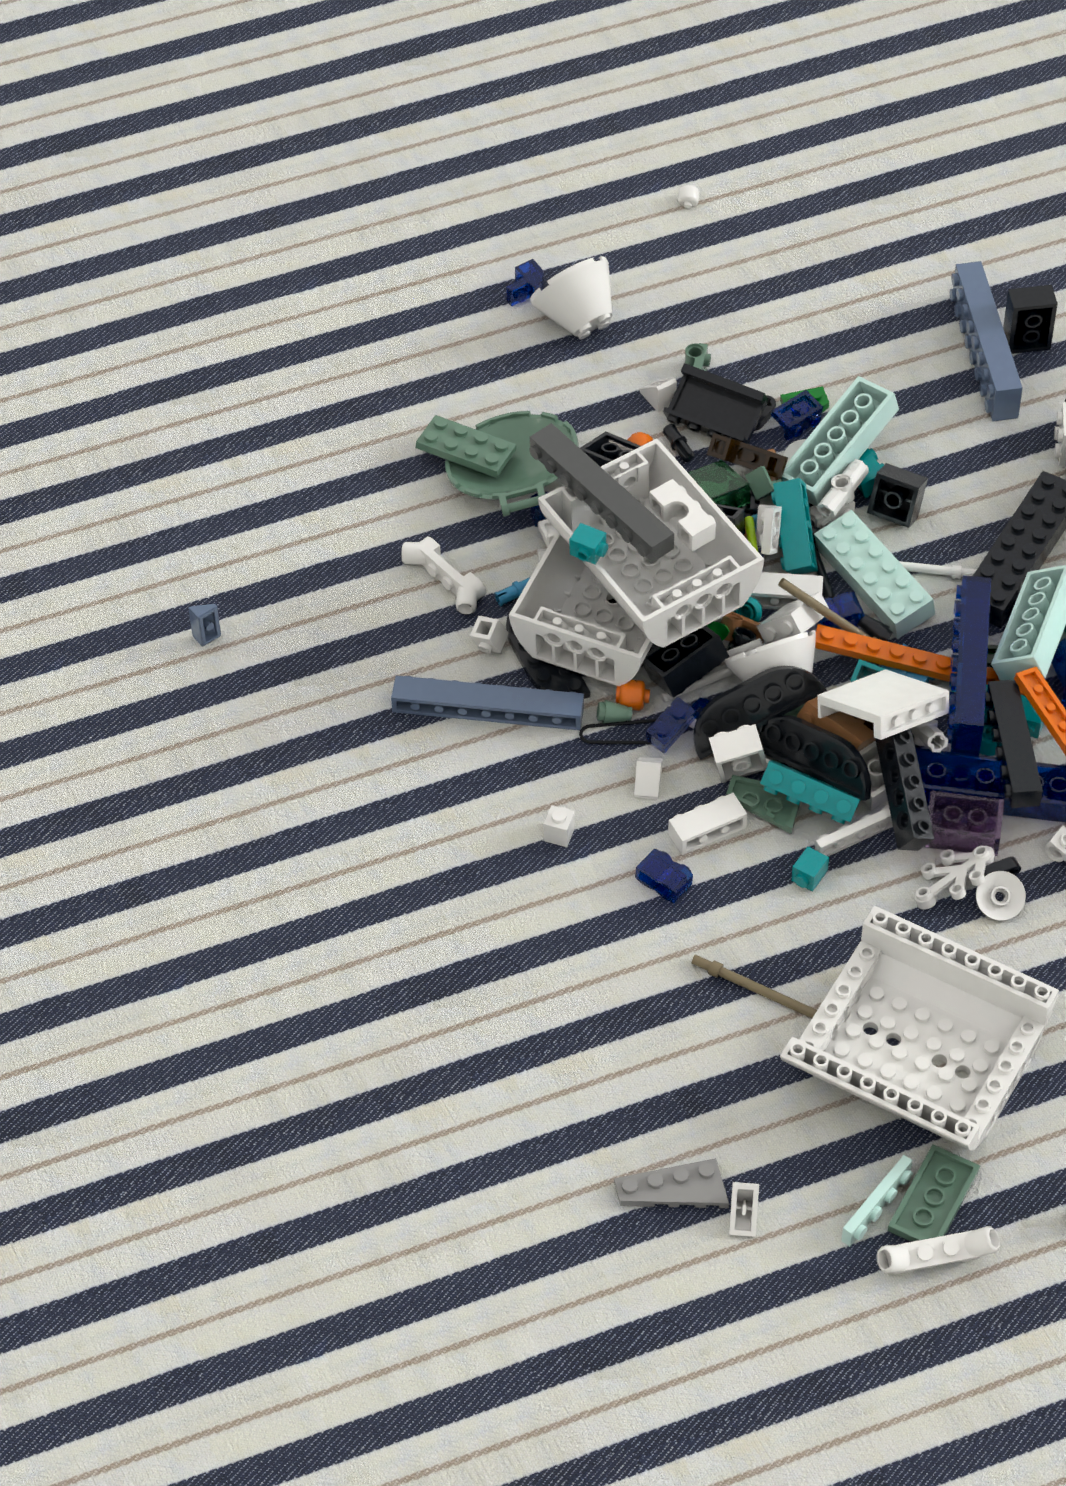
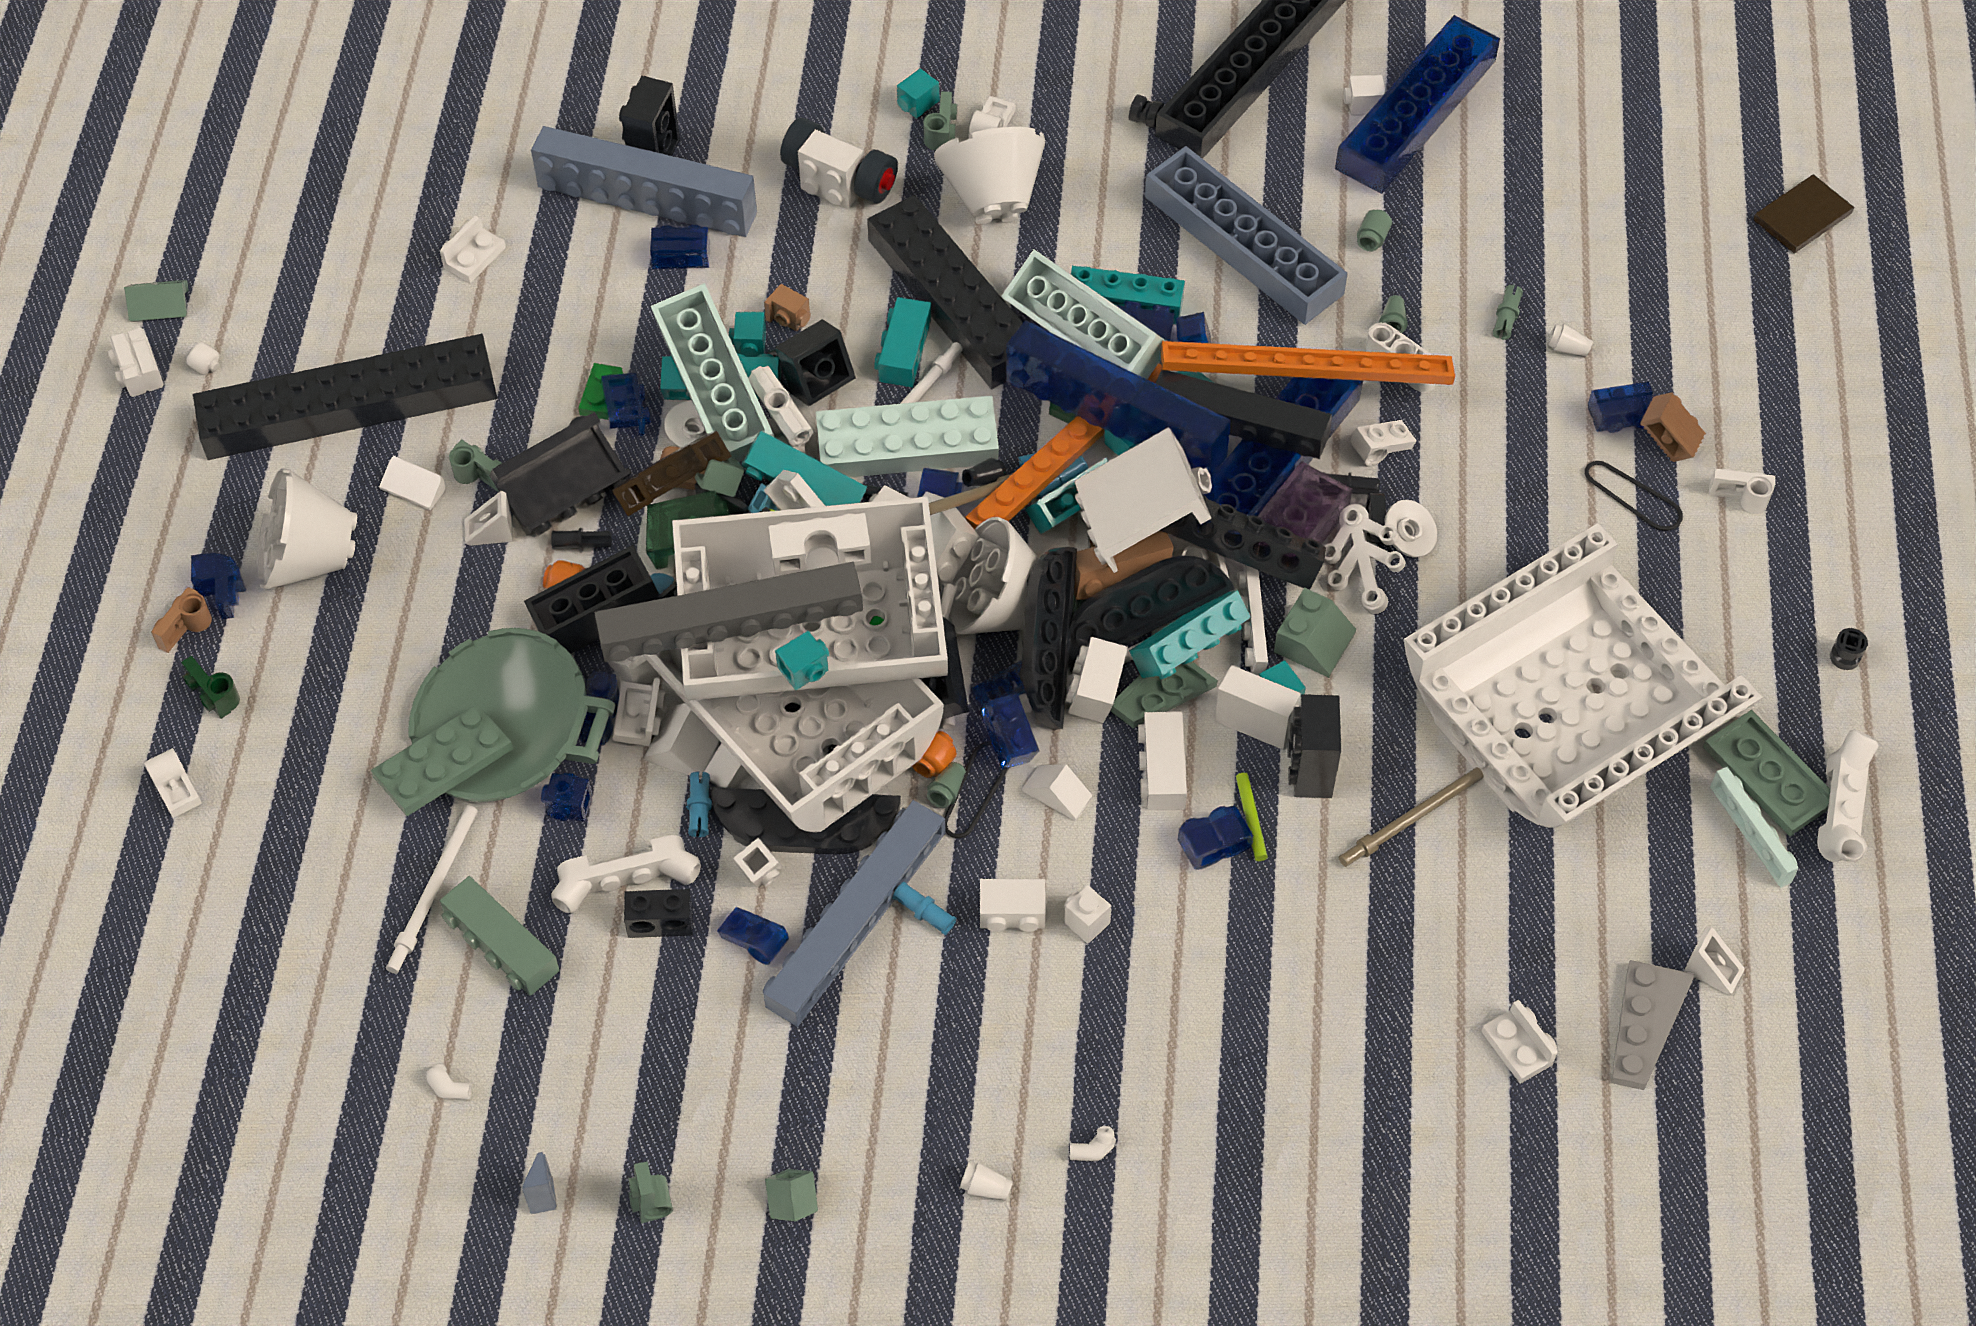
camera: 65 degrees left, 5 degrees up
(228, 679) = (649, 1194): none -> sand green plate
(252, 548) = (444, 1086): none -> white arm
(271, 753) = (791, 1194): none -> sand green panel
(334, 848) = (985, 1182): none -> white cone
(335, 491) = (407, 940): none -> white bar
(362, 532) = (499, 936): none -> sand green brick
(375, 331) = (172, 783): none -> white plate
(393, 902) = (1097, 1148): none -> white arm
(424, 602) = (658, 913): none -> black brick
(440, 658) = (756, 934): none -> clear blue plate
(448, 321) = (211, 687): none -> dark green plate
(478, 520) = (567, 797): none -> clear blue brick
(488, 278) = (181, 618): none -> medium nougat plate
(513, 738) = (924, 908): none -> dark azure pin
(543, 783) = (1012, 904): none -> white brick
(609, 1114) = (1521, 1042): none -> white bracket
(661, 166) = (136, 362): none -> white brick
(664, 341) = (412, 483): none -> white slope
(697, 893) = (1251, 816): none -> lime bar
(706, 276) = (344, 396): none -> black brick
(717, 152) = (156, 300): none -> sand green panel
(761, 895) = (1315, 746): none -> black brick
(778, 855) = (1256, 706): none -> white brick
(869, 283) = (471, 250): none -> white bracket
(870, 871) = (1314, 633): none -> sand green slope
(904, 454) = (749, 333): none -> teal brick
(940, 465) = (787, 308): none -> medium nougat brick
(950, 387) = (680, 247): none -> clear blue brick
(958, 541) = (903, 342): none -> teal brick
(1017, 846) = (1359, 484): none -> black axle

